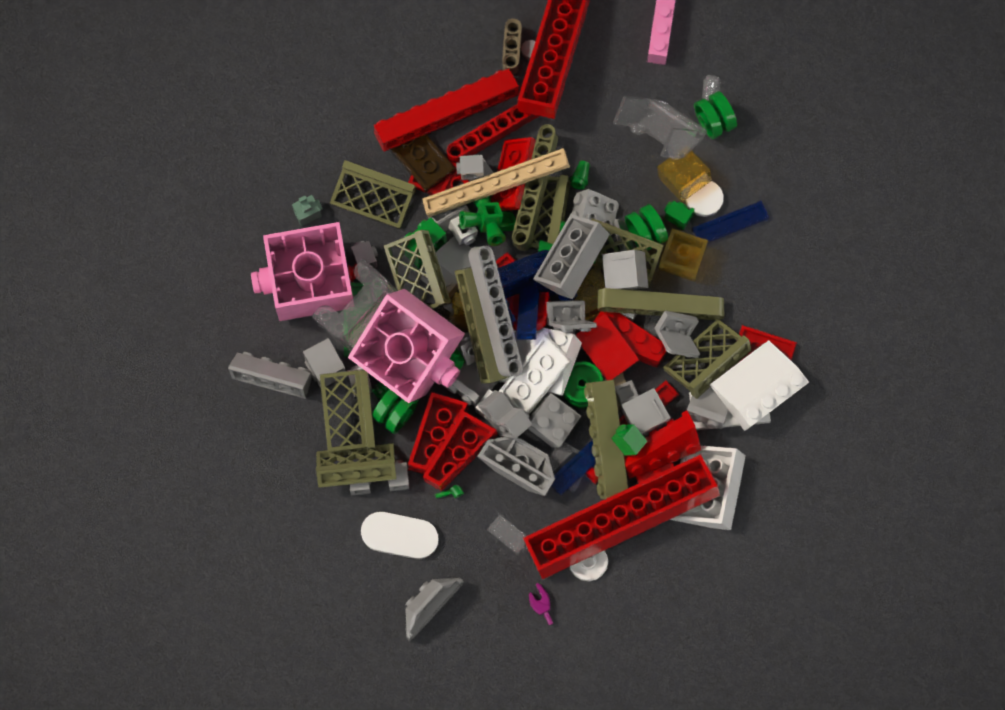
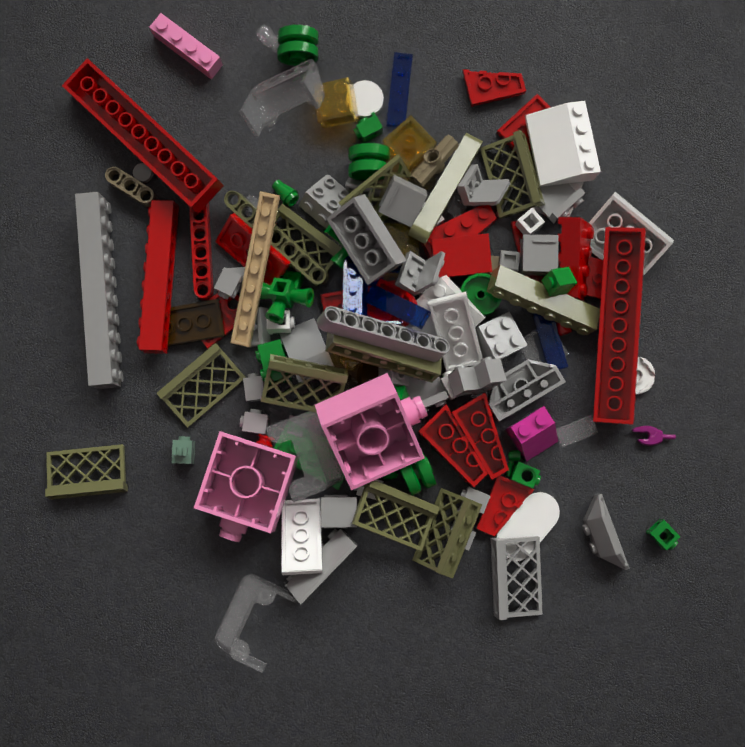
camera: 60 degrees left, 10 degrees up
(218, 328) = (249, 591): none -> clear windscreen
(231, 146) = (86, 488): none -> olive fence
(284, 343) = (301, 537): none -> white tile
(339, 533) = (500, 573): none -> light grey fence
(391, 235) = (253, 387): none -> light grey brick
(405, 67) = (98, 291): none -> light grey brick
(407, 501) = (503, 502): none -> red wing
(443, 500) = (516, 475): none -> green brick
(459, 650) = (671, 537): none -> green brick
(484, 493) = (533, 433): none -> dark pink slope
(670, 392) = (529, 222): none -> white brick
(678, 282) = (434, 161): none -> dark tan piece
(779, 299) = (491, 87): none -> red wing

